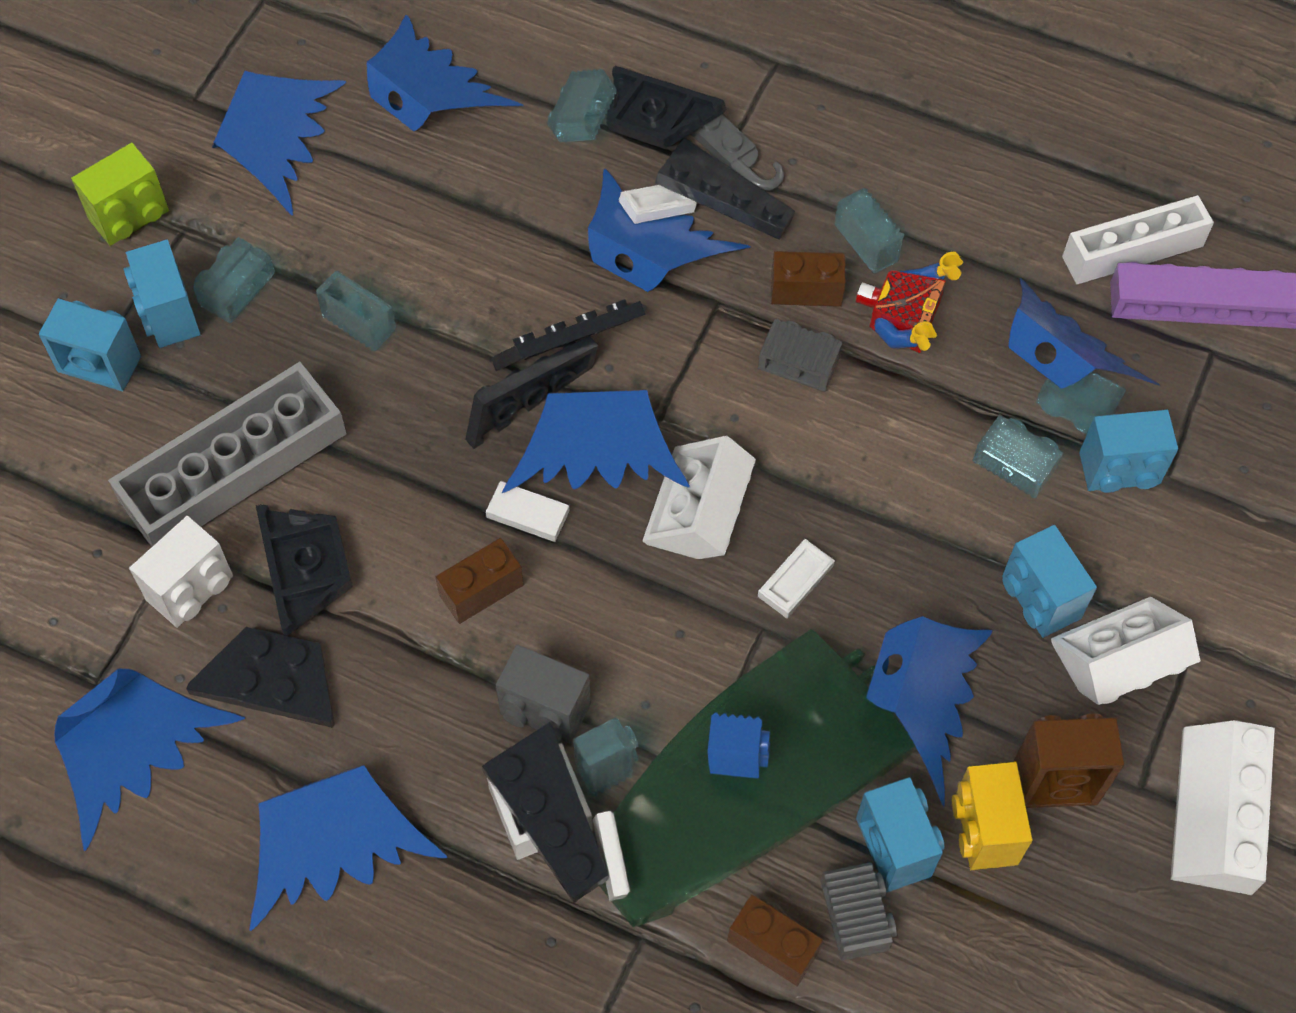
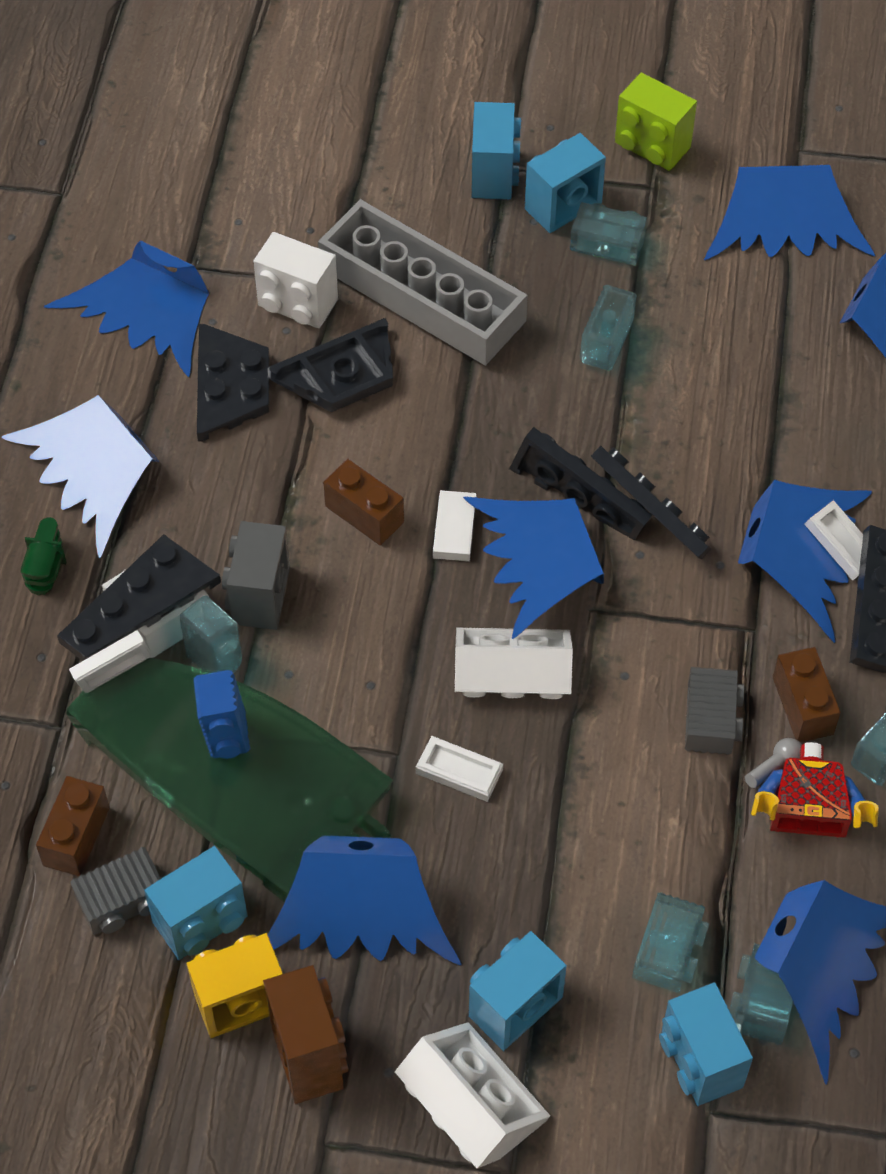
camera: 75 degrees right, 5 degrees down
(438, 909) = (43, 557): none -> dark green arm
(853, 316) = (783, 749): none -> light grey bar

